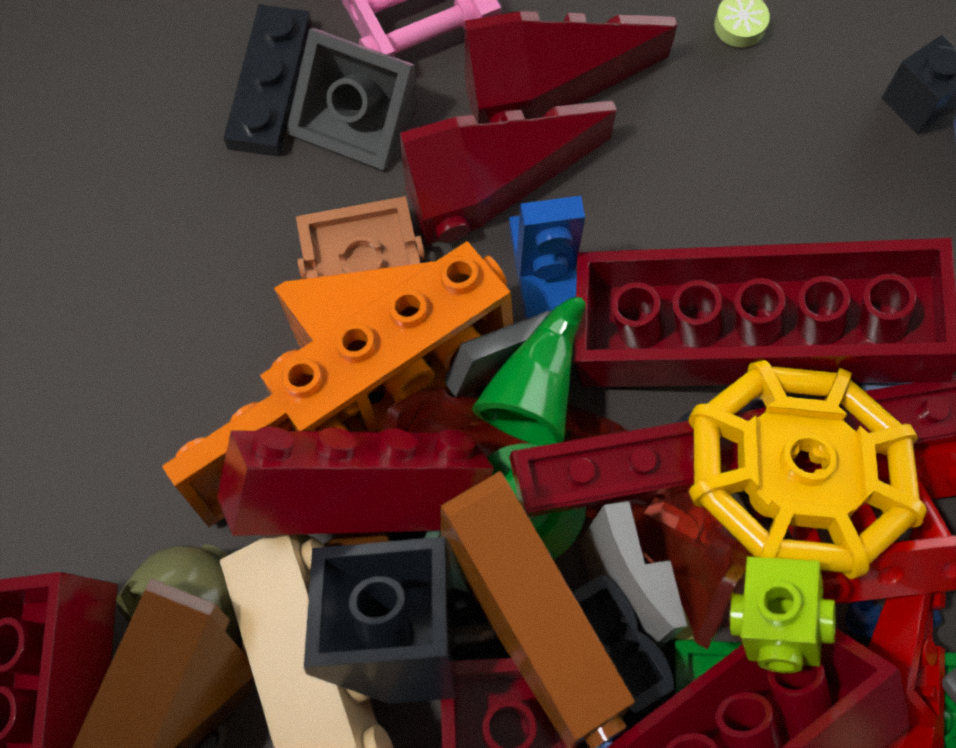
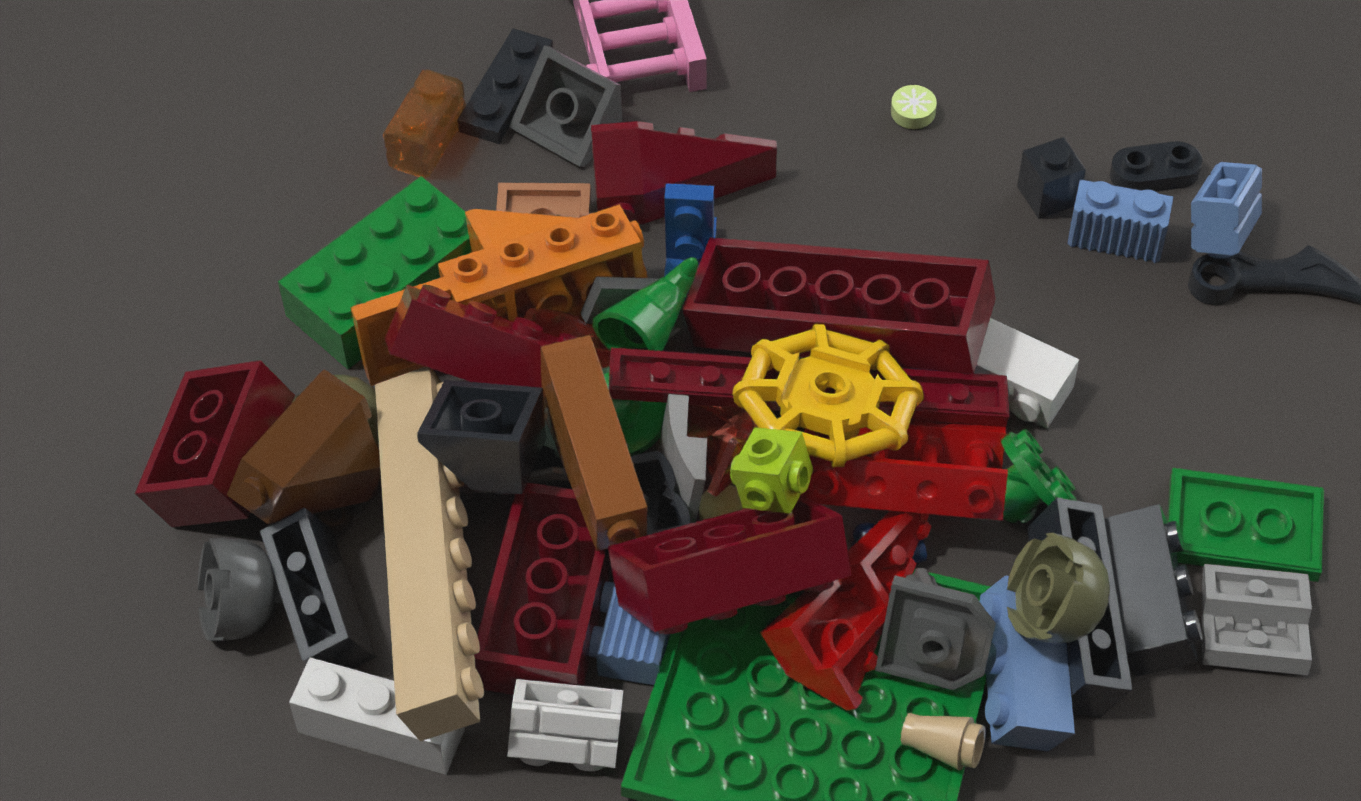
camera: 15 degrees right, 15 degrees down
(182, 365) = (373, 259): none -> green brick
(186, 152) = (424, 123): none -> clear orange brick
(540, 65) = (730, 101): dark red wedge -> none

